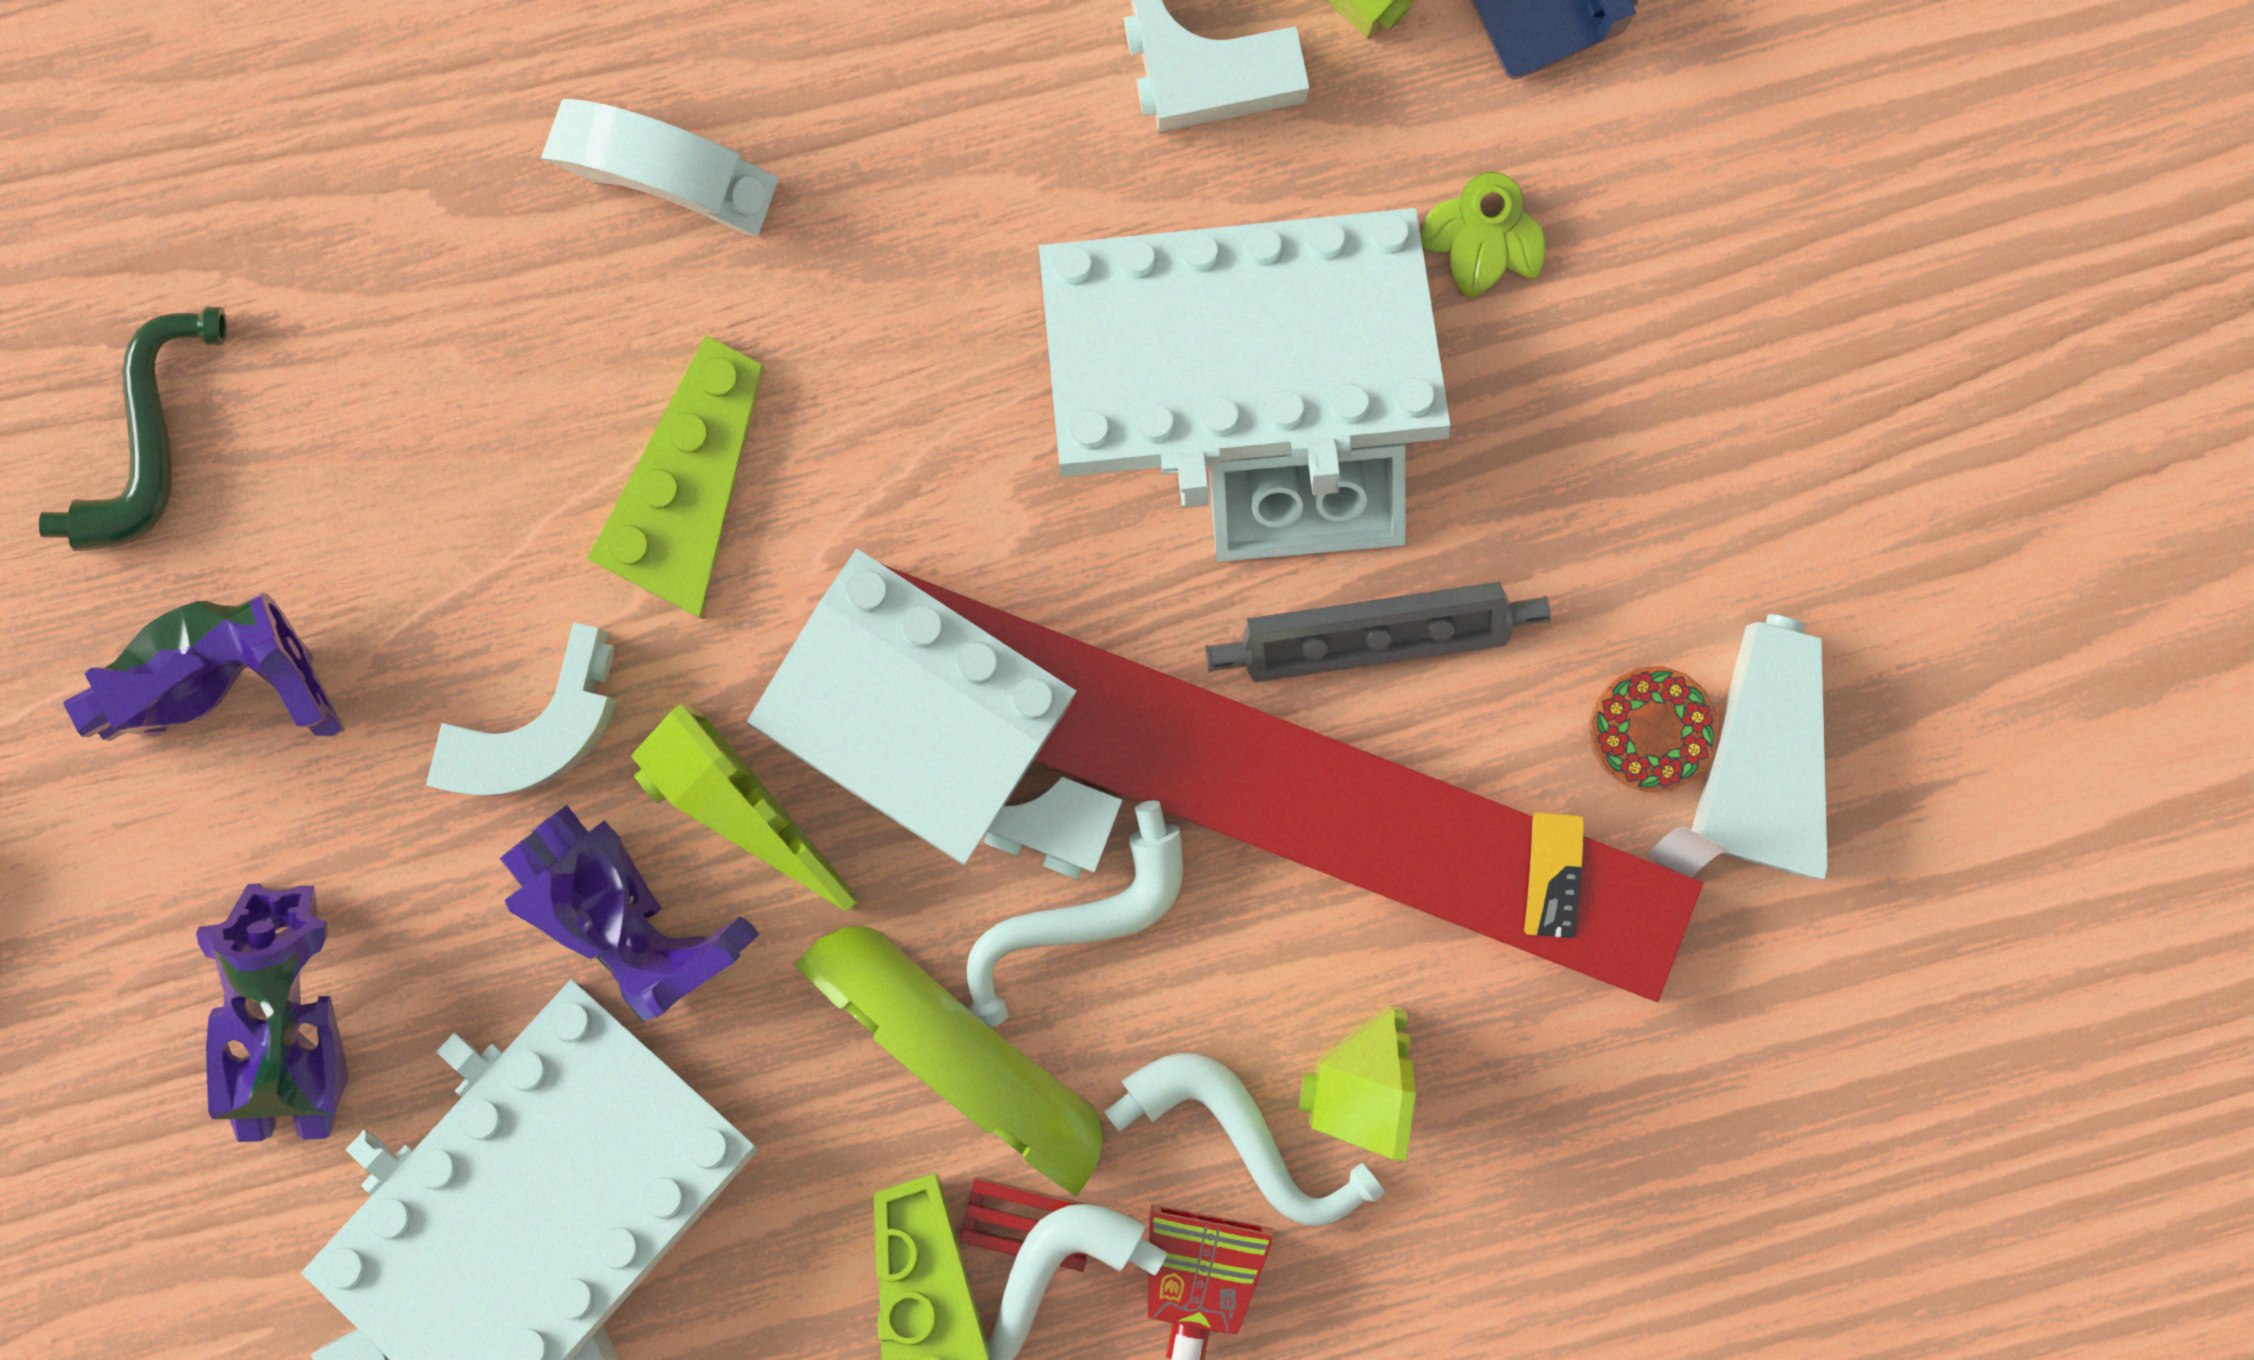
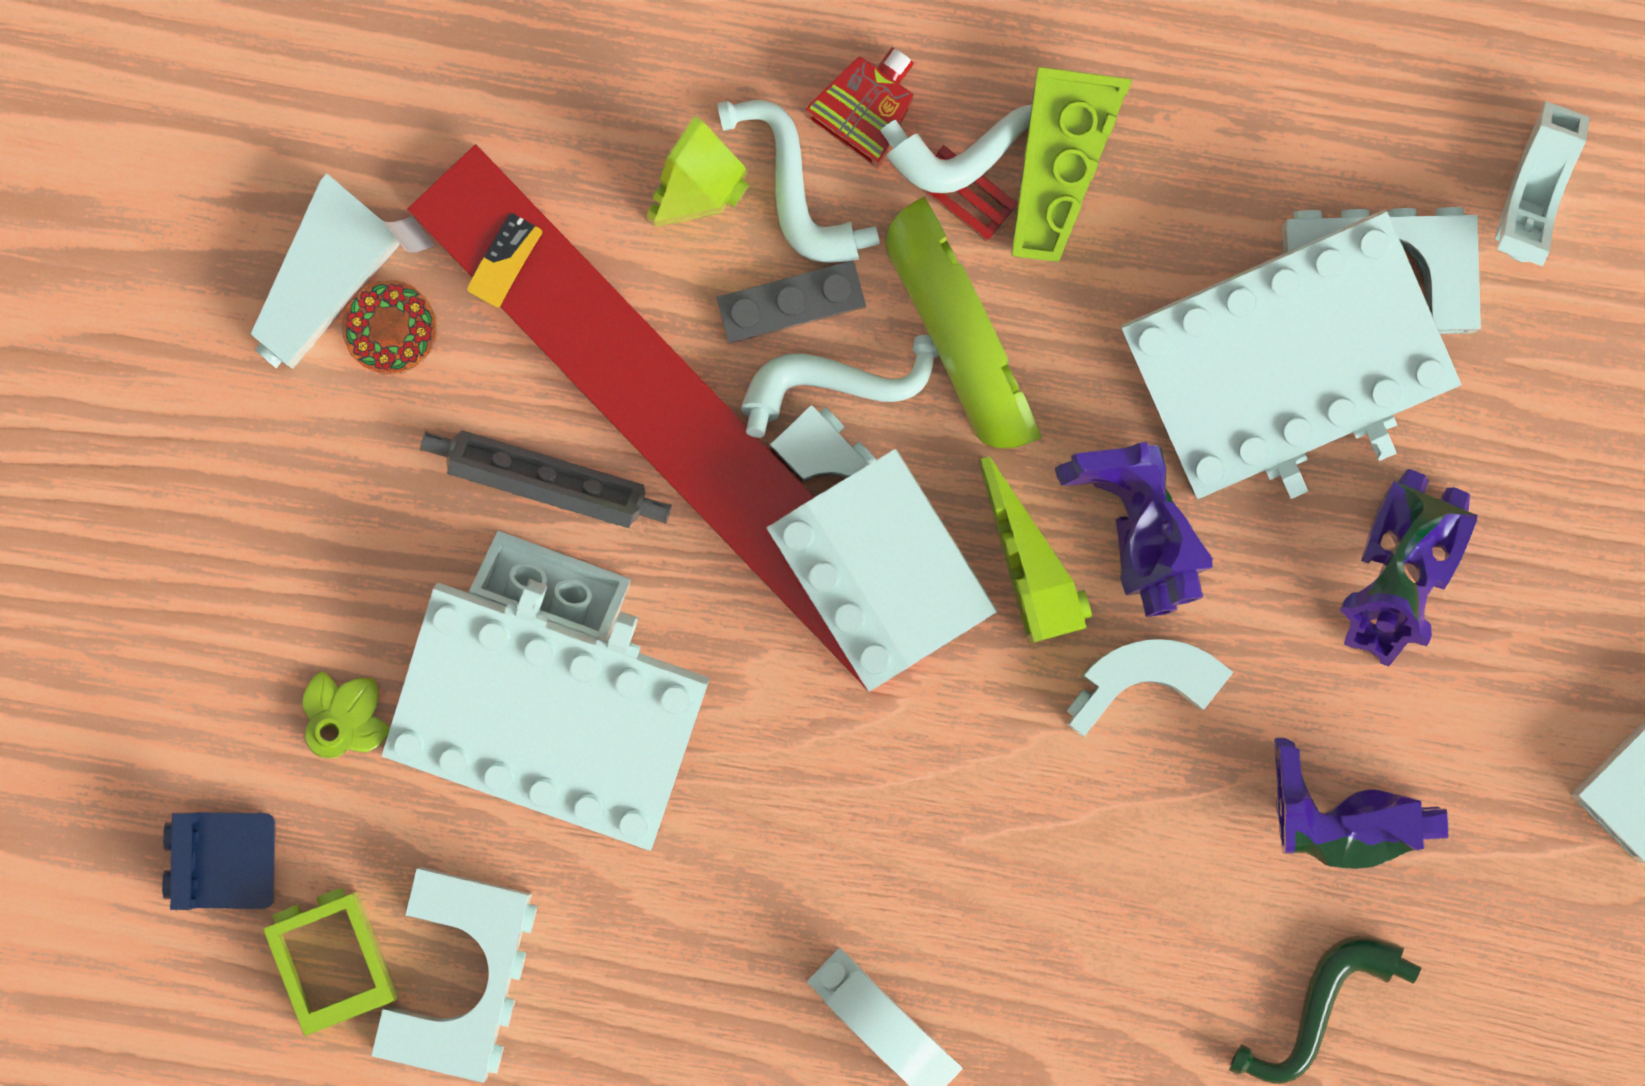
camera: 160 degrees left, 0 degrees up
(678, 496) = (975, 794): lime wing -> none
(1179, 989) = (791, 302): none -> dark grey plate

